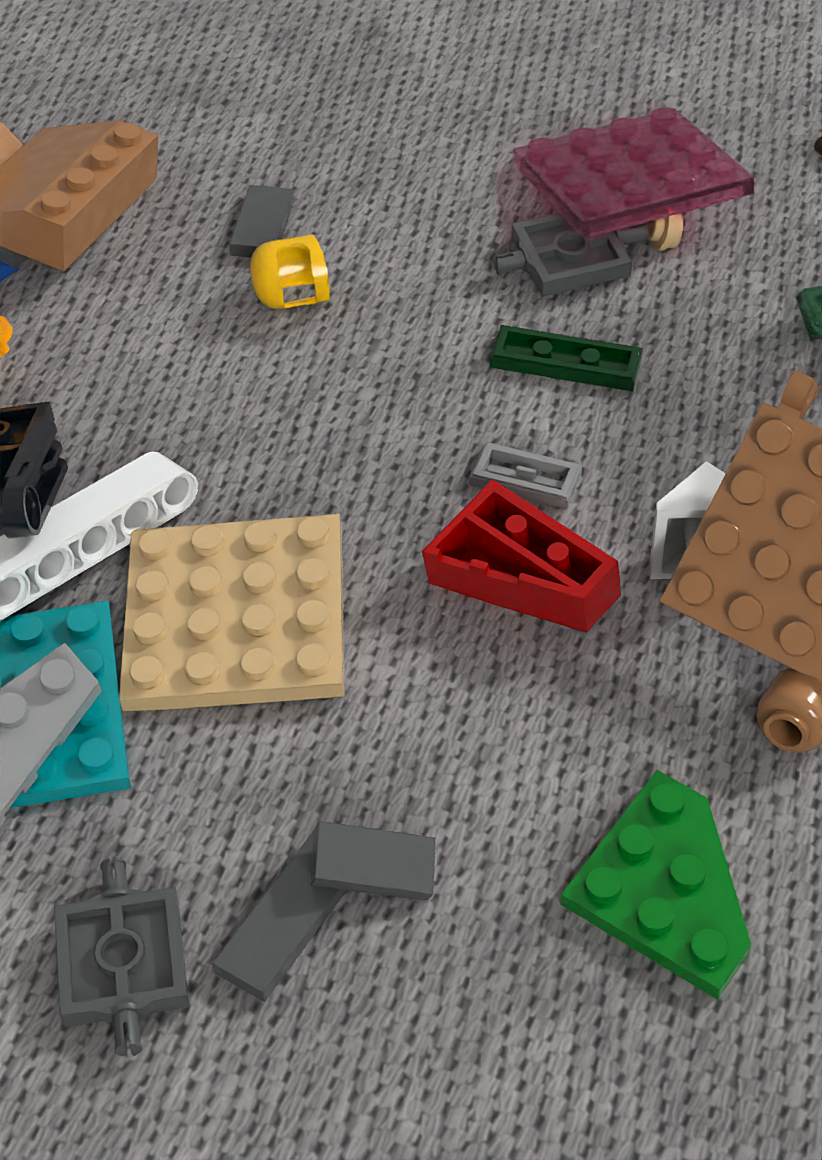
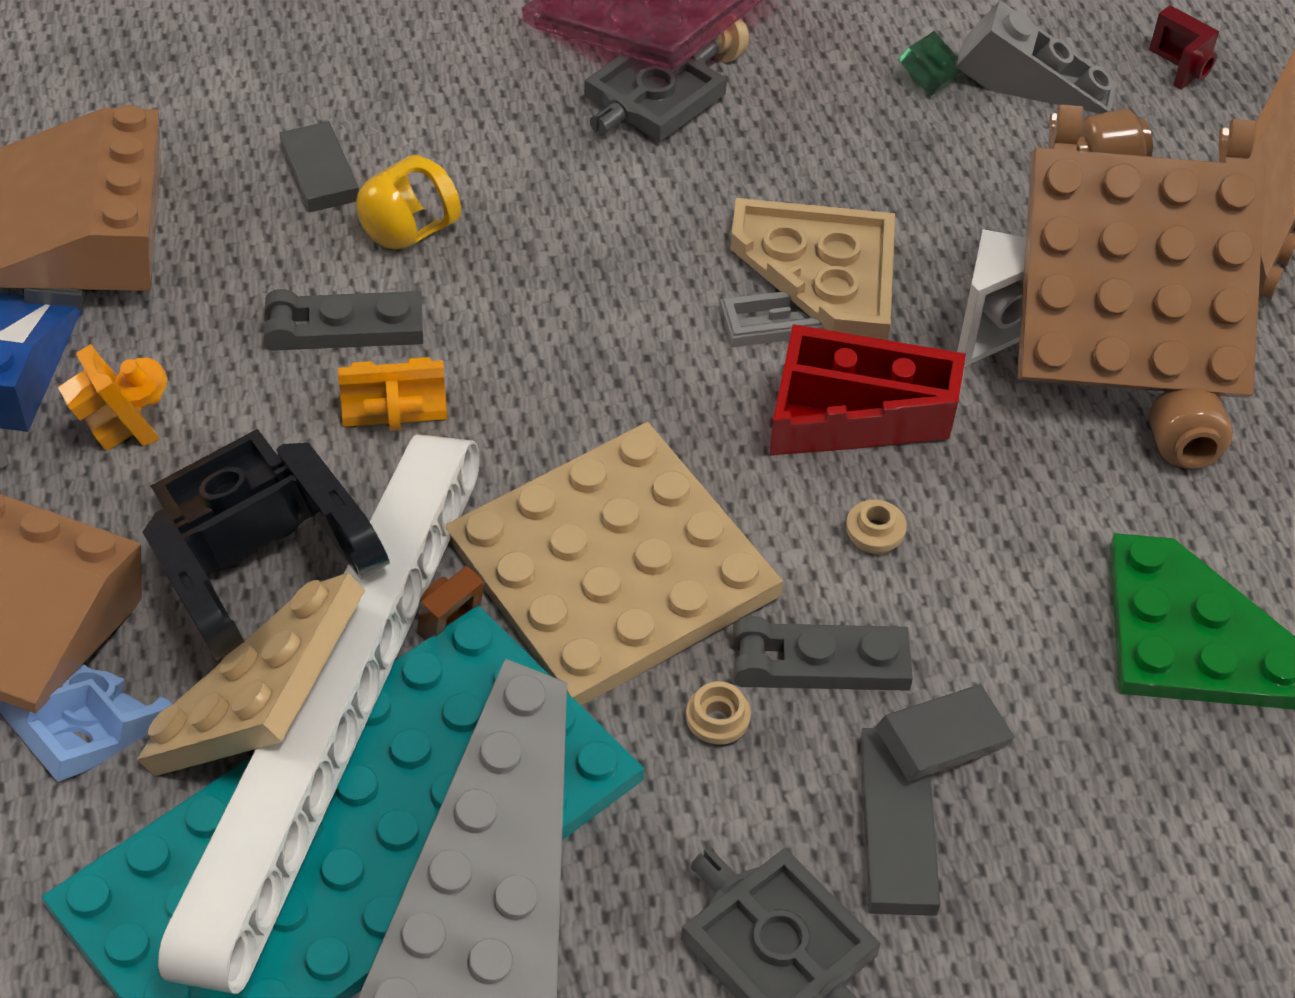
camera: 35 degrees left, 0 degrees up
(83, 586) = (448, 600): none -> dark orange plate
(172, 415) = (392, 393): none -> light orange hips
(187, 347) = (342, 320): none -> dark grey plate
(214, 750) = (723, 698): none -> tan plate
(337, 758) = (822, 656): none -> dark grey plate
(462, 687) = (873, 537): none -> tan plate
(566, 357) = (714, 192): dark green tile -> none
(596, 443) = (824, 258): none -> tan plate

